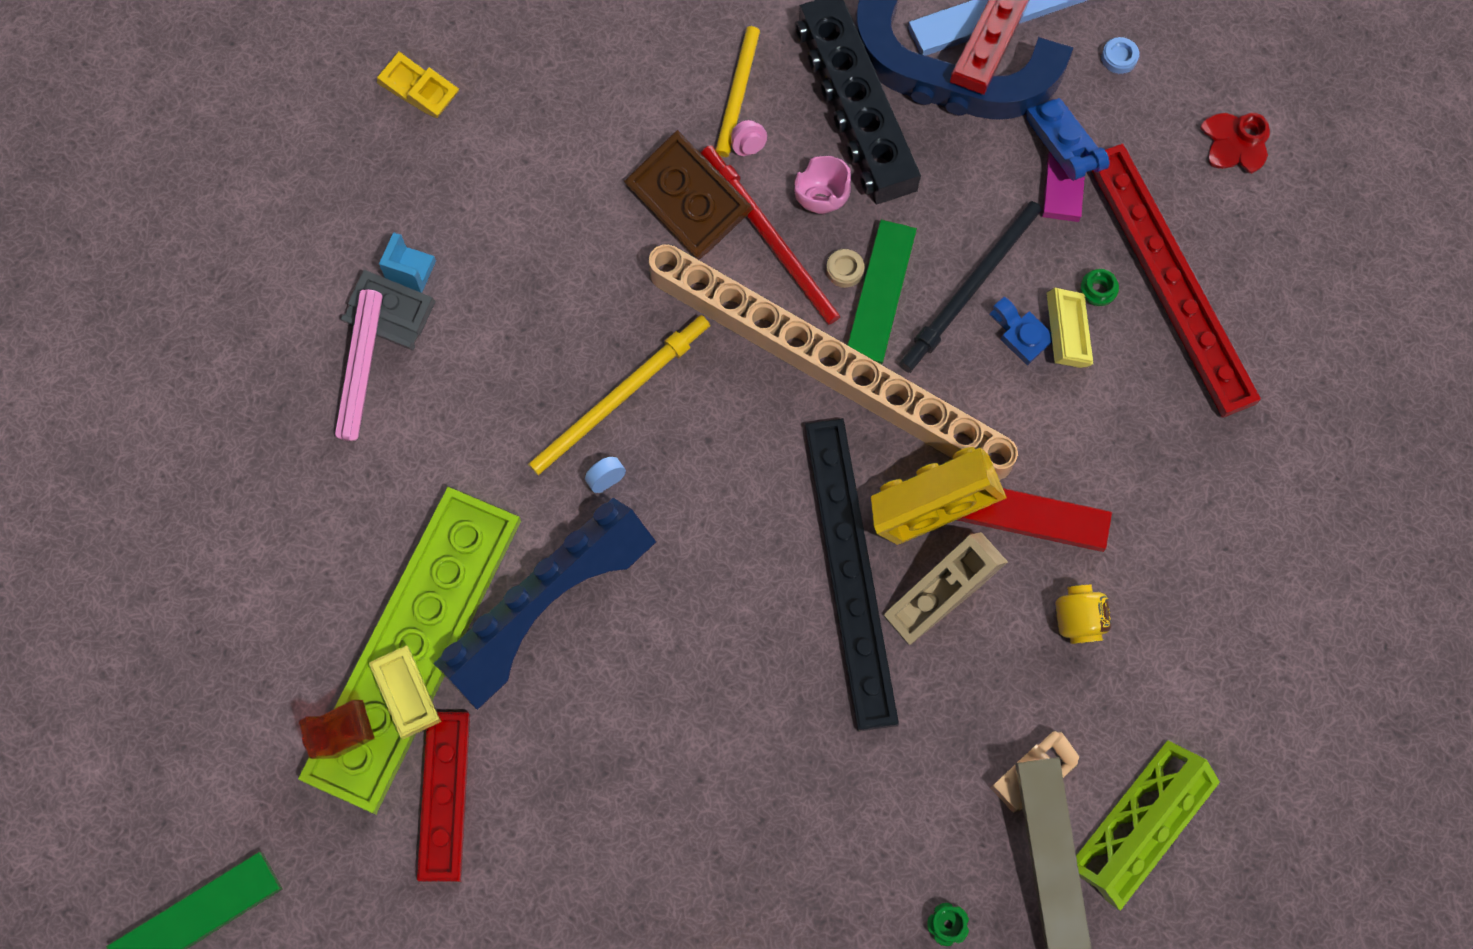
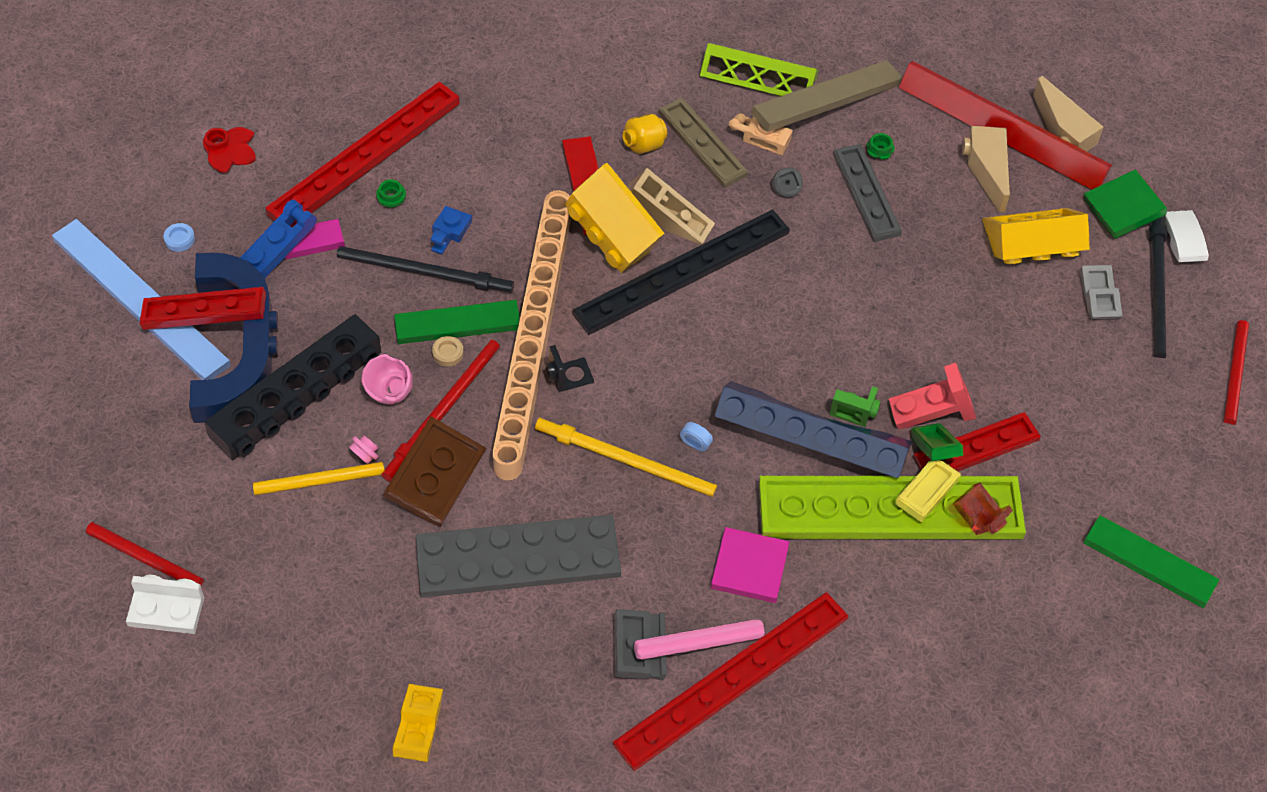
camera: 115 degrees left, 15 degrees down
(307, 390) = (729, 681): none -> red tile
(405, 264) = (595, 647): dark azure panel -> none
(424, 463) = (750, 565): none -> dark pink tile
(460, 737) = (936, 442): none -> green tile
(513, 778) = (933, 401): none -> coral bracket
(551, 242) = (517, 556): none -> dark grey plate
(561, 666) = (854, 408): none -> bright green bracket
(758, 364) = (557, 371): none -> black bracket
(882, 866) = (867, 193): none -> dark grey tile
(935, 764) = (787, 182): none -> dark grey tile
(1048, 690) = (703, 142): none -> dark tan tile
(1069, 328) = (433, 199): light yellow tile -> none

